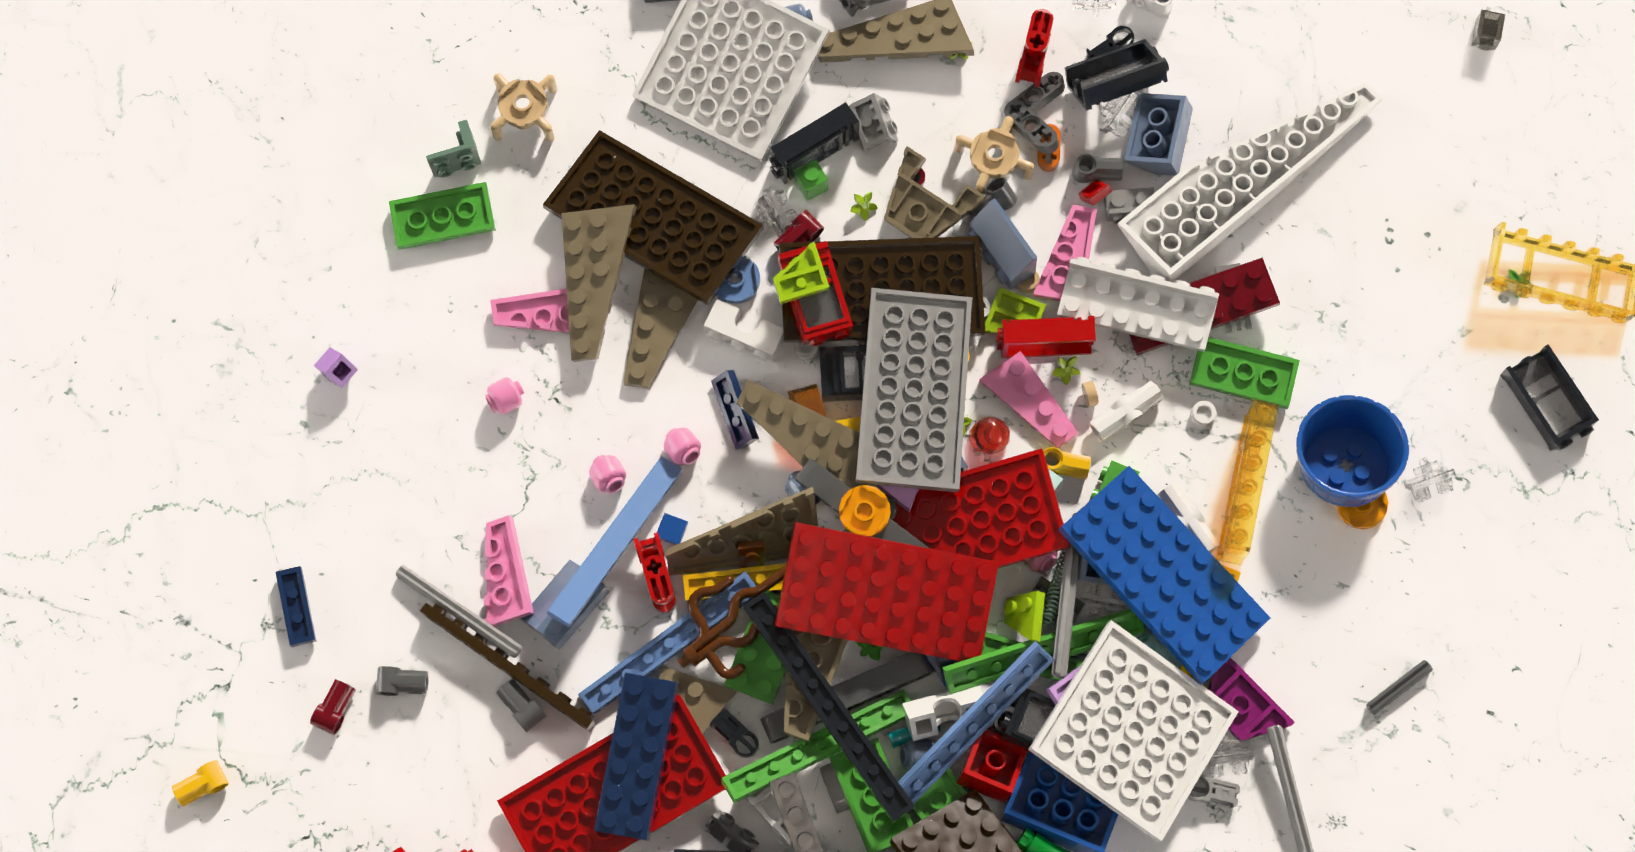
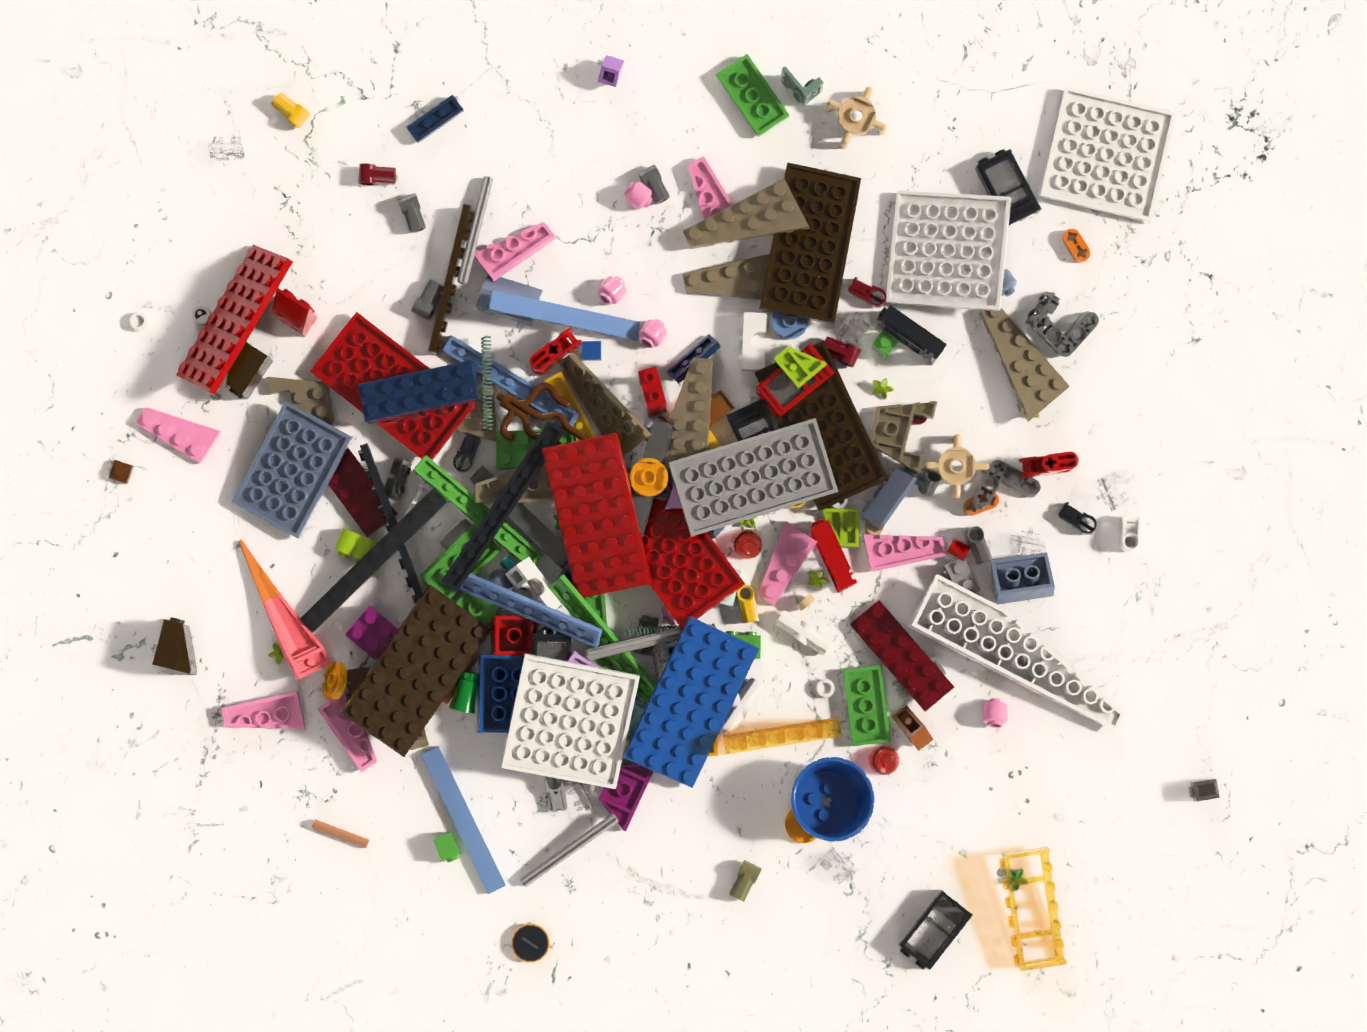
camera: 65 degrees right, 10 degrees up
(490, 371) = (653, 180): none -> dark grey piece
(708, 694) = (485, 382): none -> sand green piece
(738, 181) = (864, 292): none -> dark red piece
(751, 554) = (593, 412): reddish brown plate -> none
(759, 459) = (652, 391): none -> red door
(874, 121) = (948, 370): light grey bracket -> none
(1025, 614) = (624, 617): lime wing -> none
(1116, 73) = (1054, 530): black door -> none
(1139, 303) = (882, 611): white bracket -> none
(1291, 328) = (912, 727): none -> dark orange slope
(1309, 227) = (994, 713): none -> bright pink head
(1318, 379) = (883, 760): none -> clear red hair
(1399, 687) = (680, 895): dark grey axle -> none
(1404, 595) = (746, 878): none -> olive piece

